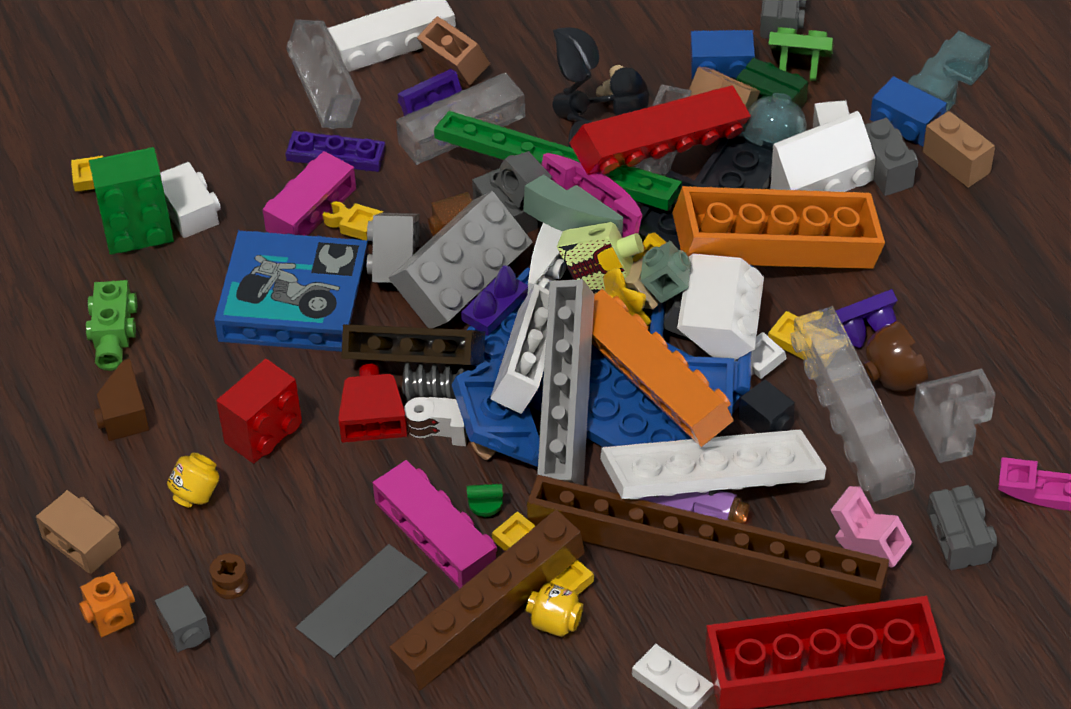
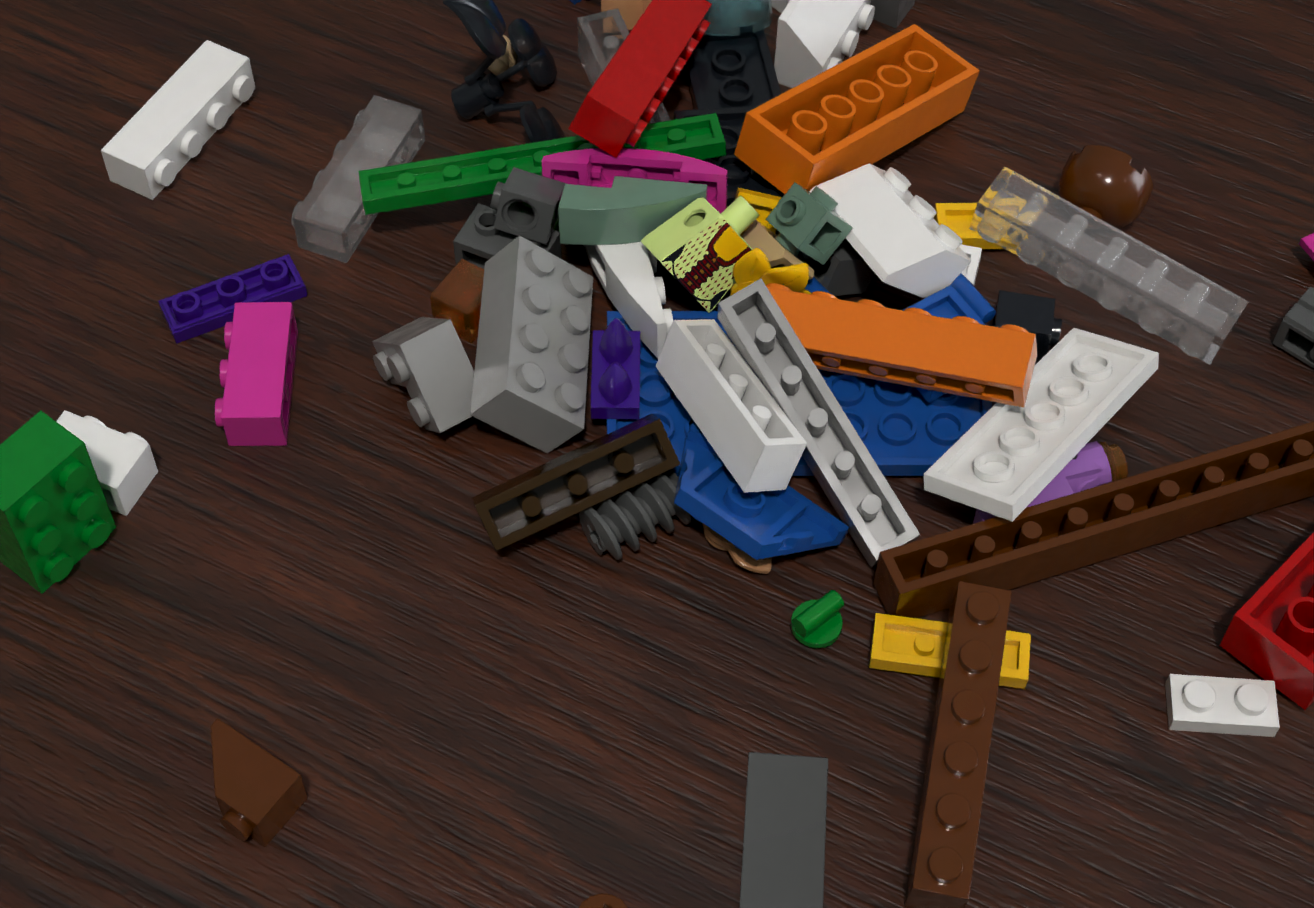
camera: 40 degrees left, 5 degrees up
(111, 321) = (113, 661): bright green brick -> none
(193, 480) = (446, 829): yellow head -> none
(259, 411) = (459, 682): red brick -> none
(290, 290) = (346, 501): panel -> none
(323, 74) = (142, 209): clear brick -> none
(350, 221) = (344, 370): yellow plate -> none
(371, 407) = (580, 589): red torso -> none
(429, 92) = (294, 170): dark purple tile -> none
(433, 523) = (794, 691): dark pink brick -> none
(437, 418) = (672, 555): white leg -> none
(453, 50) = (282, 101): nougat brick -> none
(554, 609) = (1034, 707): yellow head -> none
(868, 531) = (1260, 401): bright pink brick -> none
(875, 310) = (1022, 154): dark purple tile -> none
(950, 409) = (1209, 223): clear brick -> none

